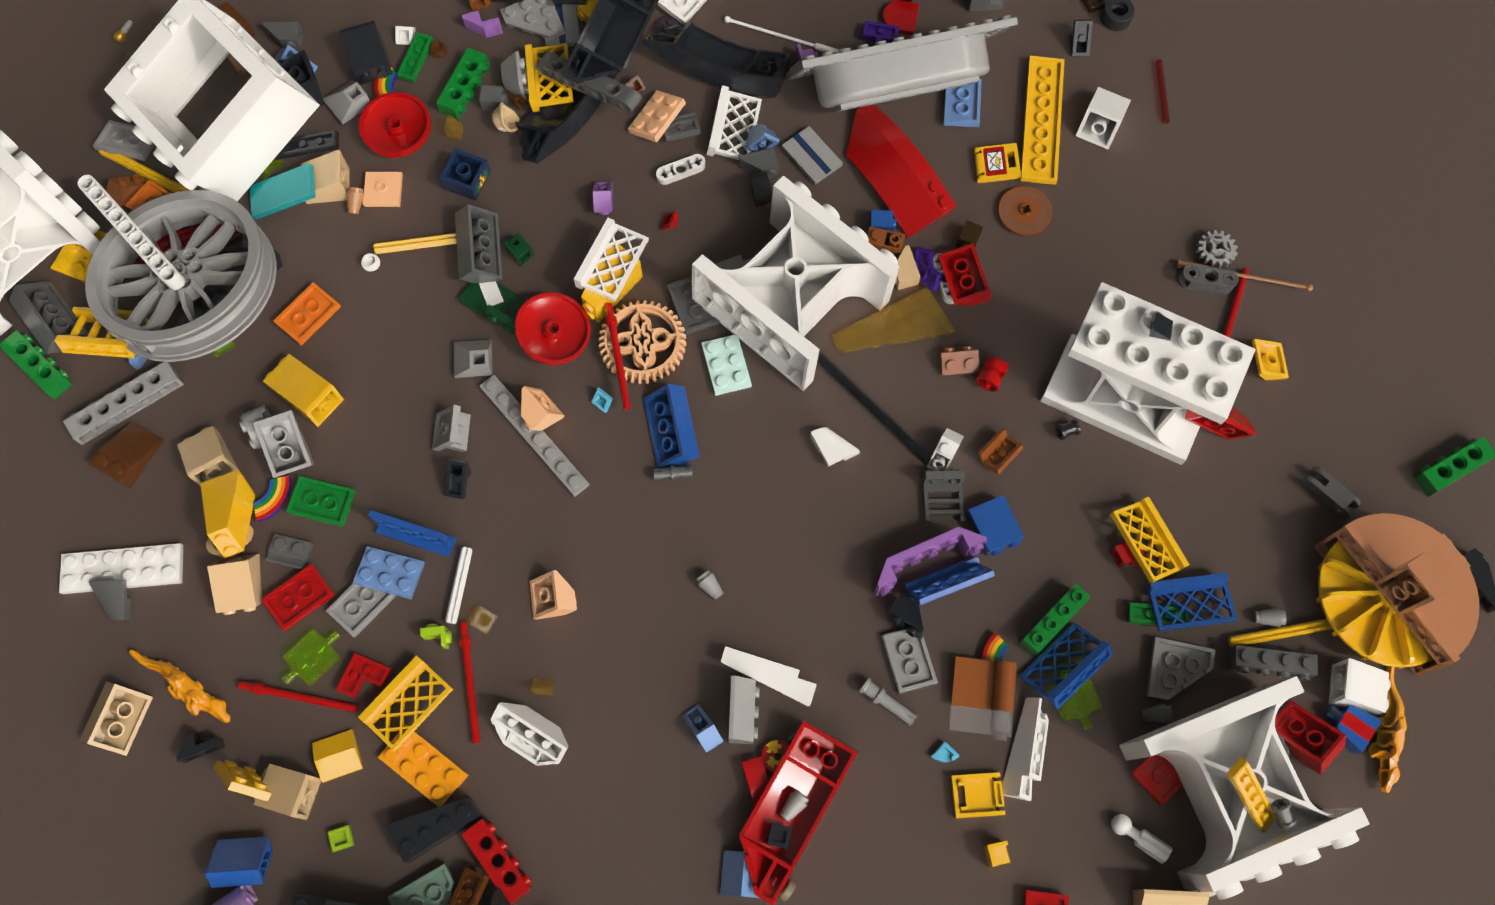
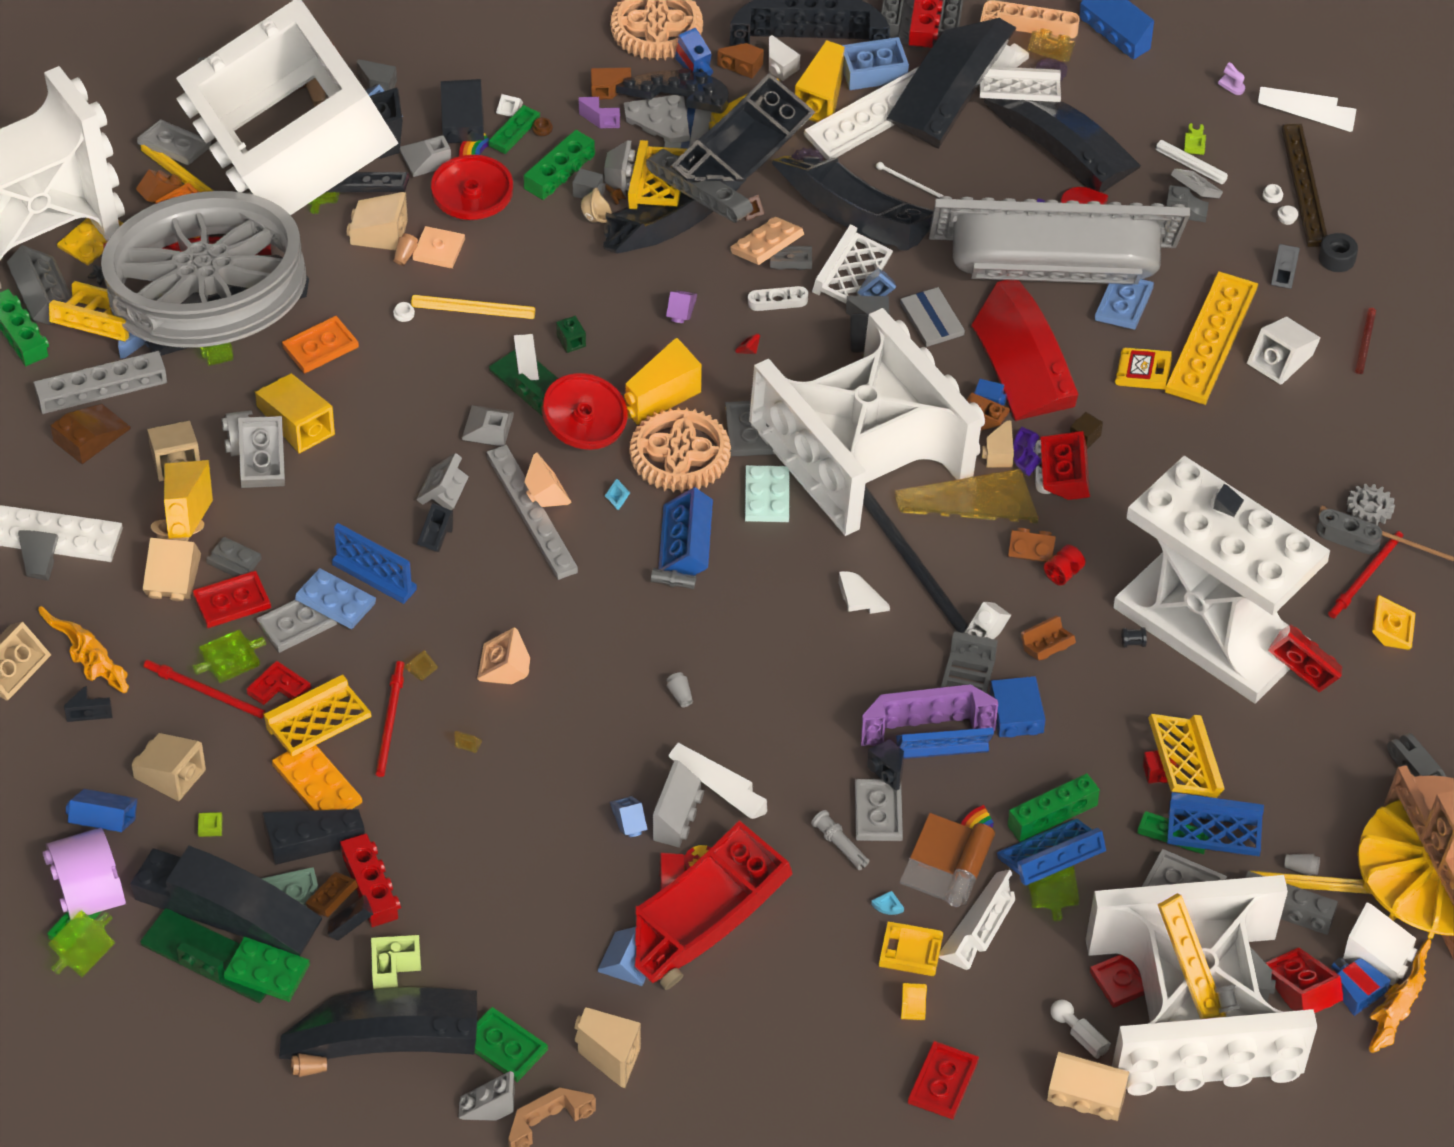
camera: 15 degrees right, 20 degrees down
(120, 35) = (195, 42): piece -> none
(131, 232) = (165, 214): white beam -> none
(242, 780) = (130, 733): yellow plate -> none
(274, 498) = (232, 506): tile -> none
(282, 191) = (333, 221): teal tile -> none
(321, 501) = (282, 519): green plate -> none
(336, 756) = (228, 752): yellow slope -> none
(434, 631) = (369, 664): lime bracket -> none
(453, 128) = (535, 206): clear yellow slope -> none
(458, 585) = (406, 629): white axle -> none
(465, 174) = (534, 249): dark blue brick -> none
(478, 245) = (528, 317): dark grey slope -> none
(529, 734) = (437, 774): white wedge -> none
(595, 256) = (654, 348): white fence -> none
(611, 322) = (651, 420): red bar -> none
(779, 836) = (678, 922): black plate -> none
(795, 803) = (705, 901): light grey cone -> none
(1036, 218) = (1148, 412): dark orange piece -> none

